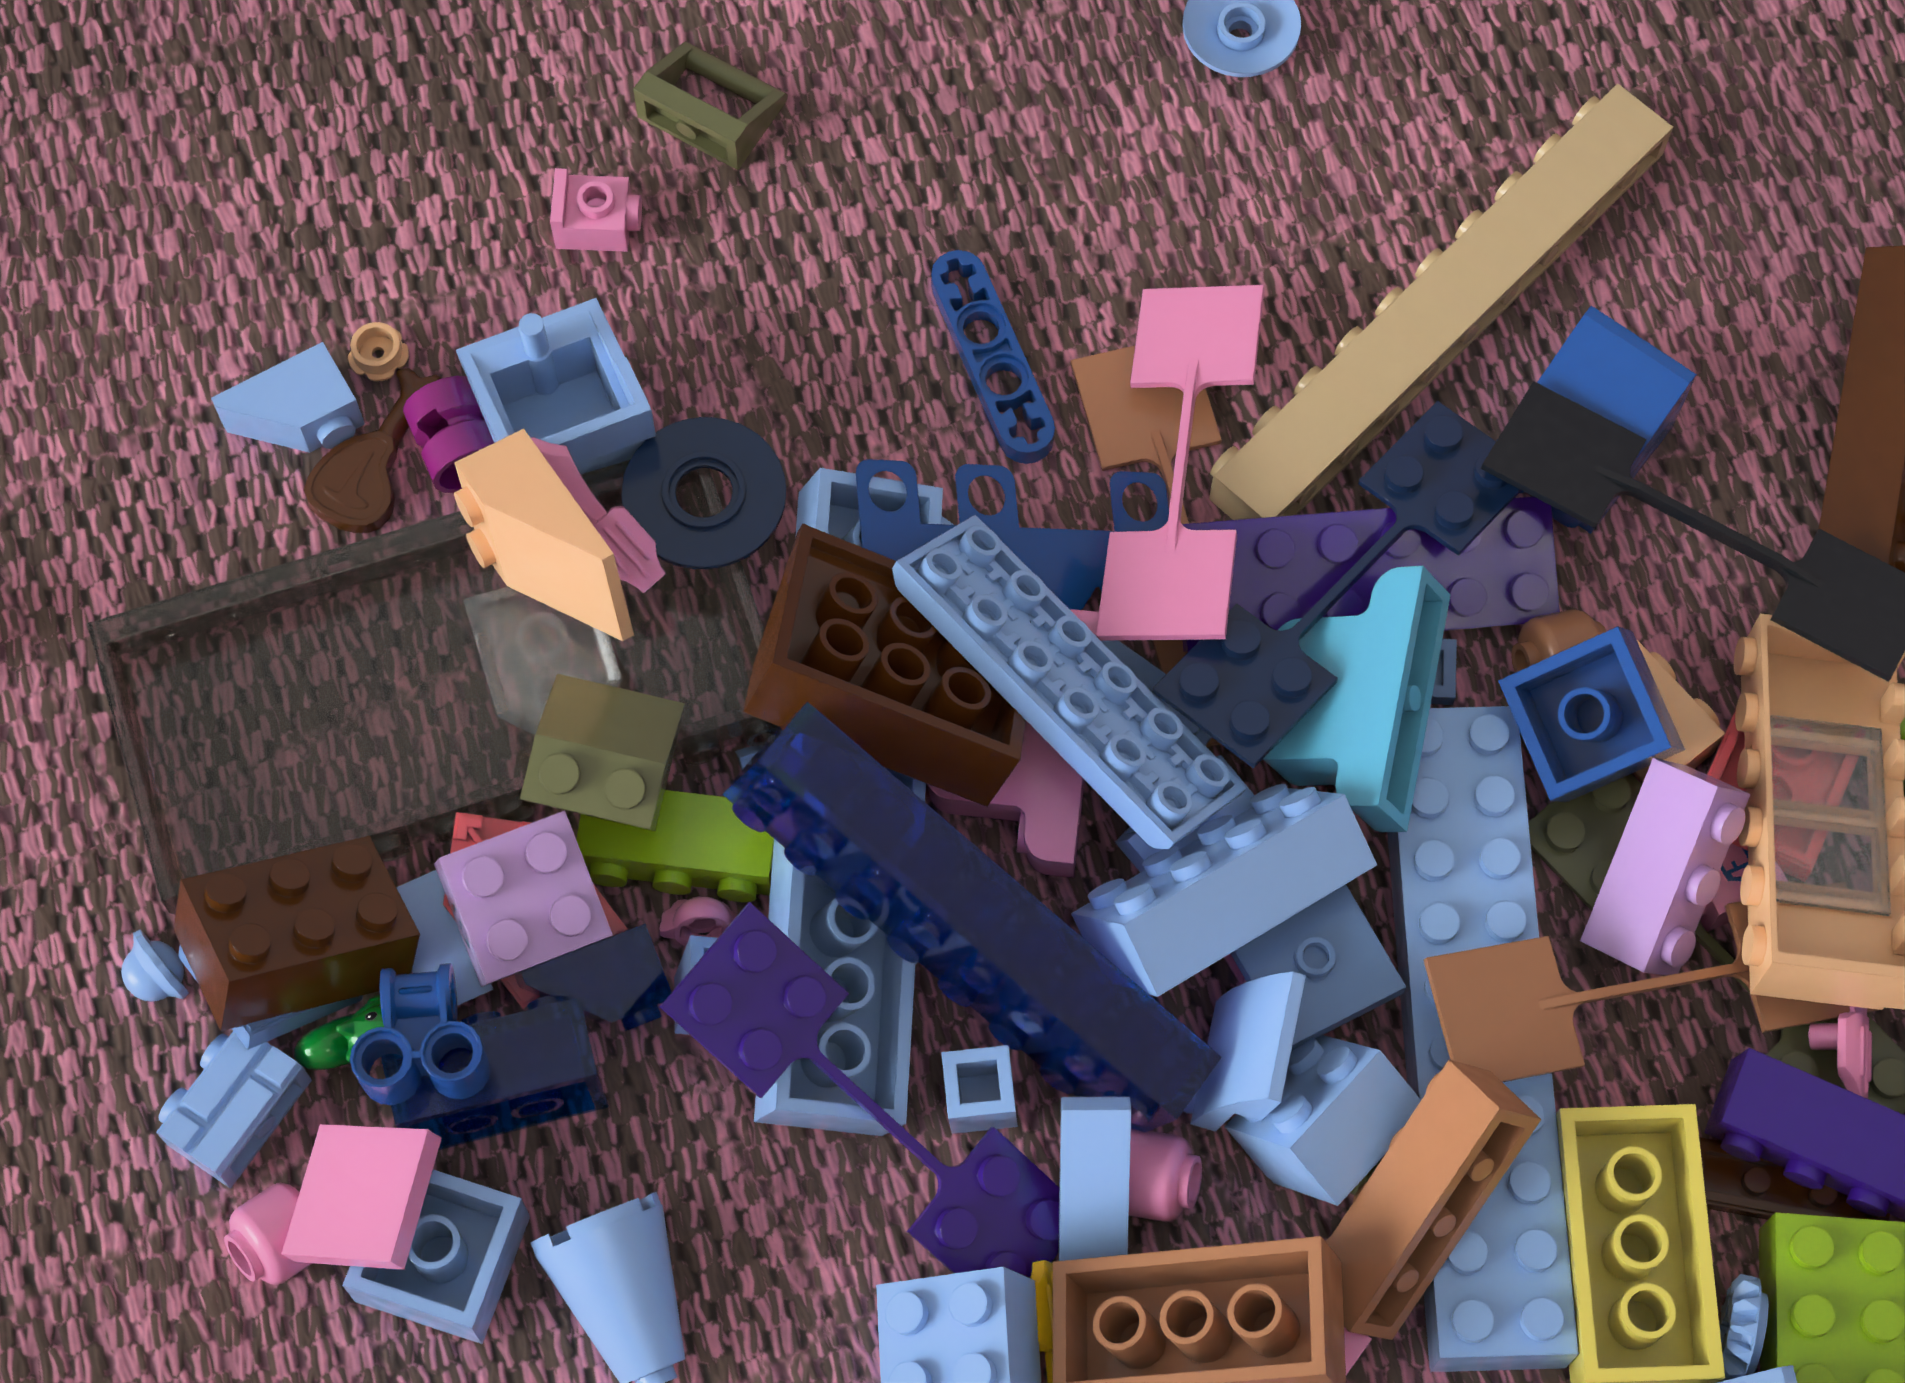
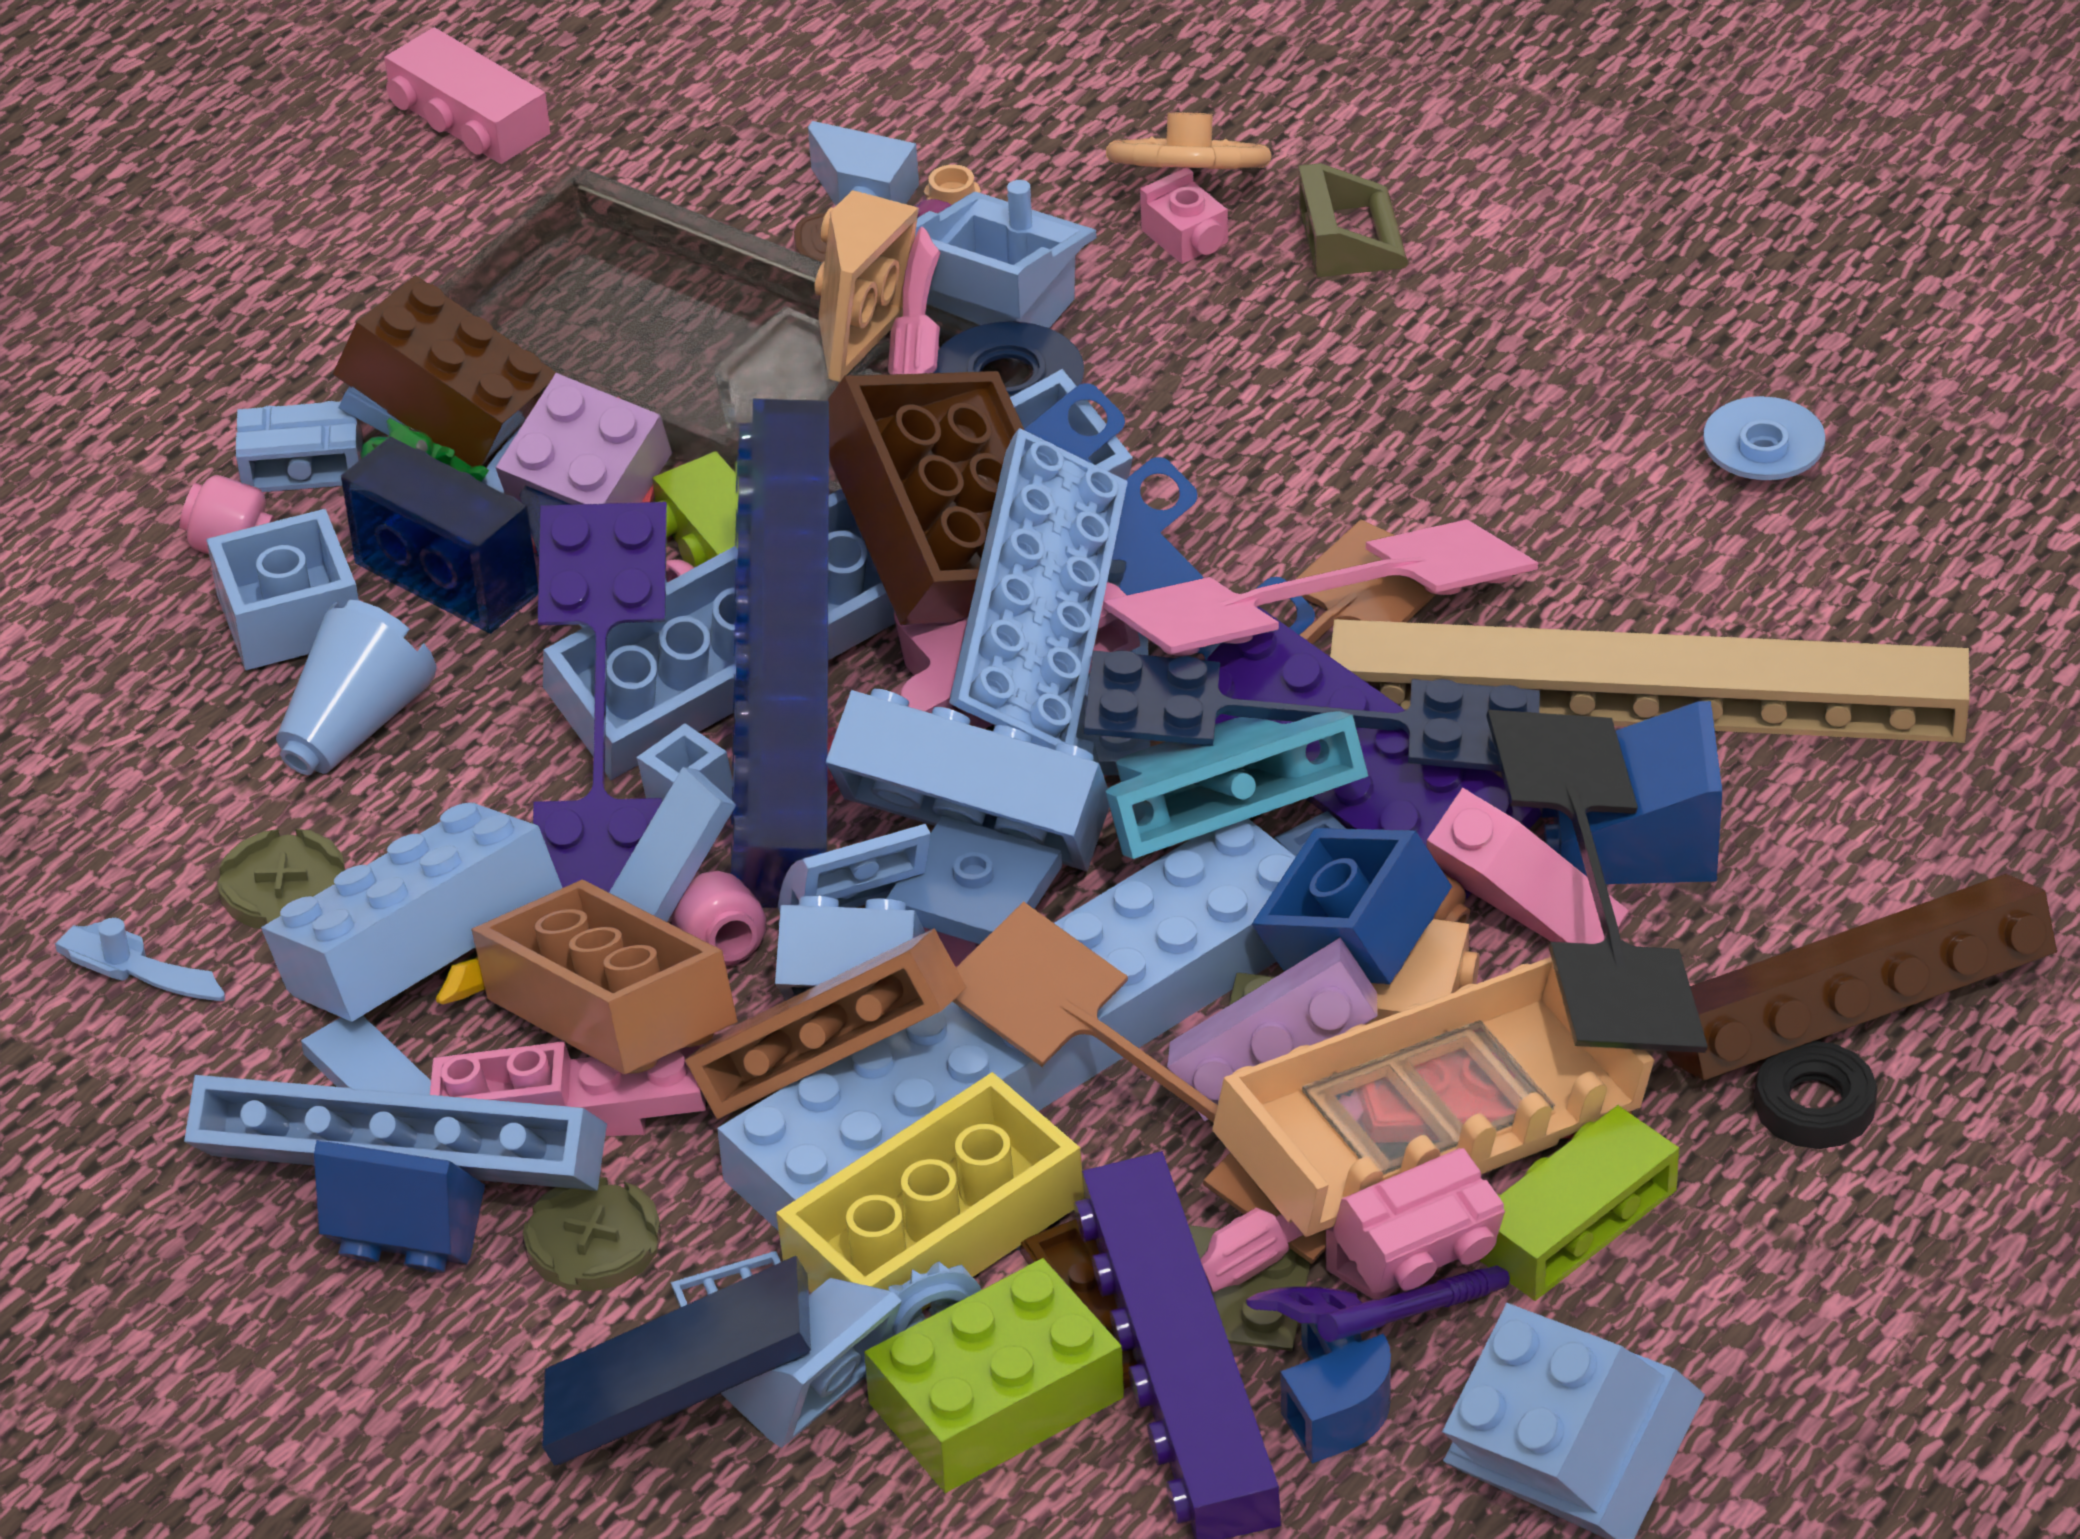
camera: 55 degrees right, 25 degrees down
(362, 1196) = (279, 505): bright pink tile -> none
(421, 1028) = (406, 434): blue piece -> none
(534, 158) = (1188, 146): none -> light nougat piece
(603, 752) = (702, 410): olive slope -> none
(994, 356) = (1305, 476): blue beam -> none
(1607, 567) = (1516, 872): none -> bright pink slope

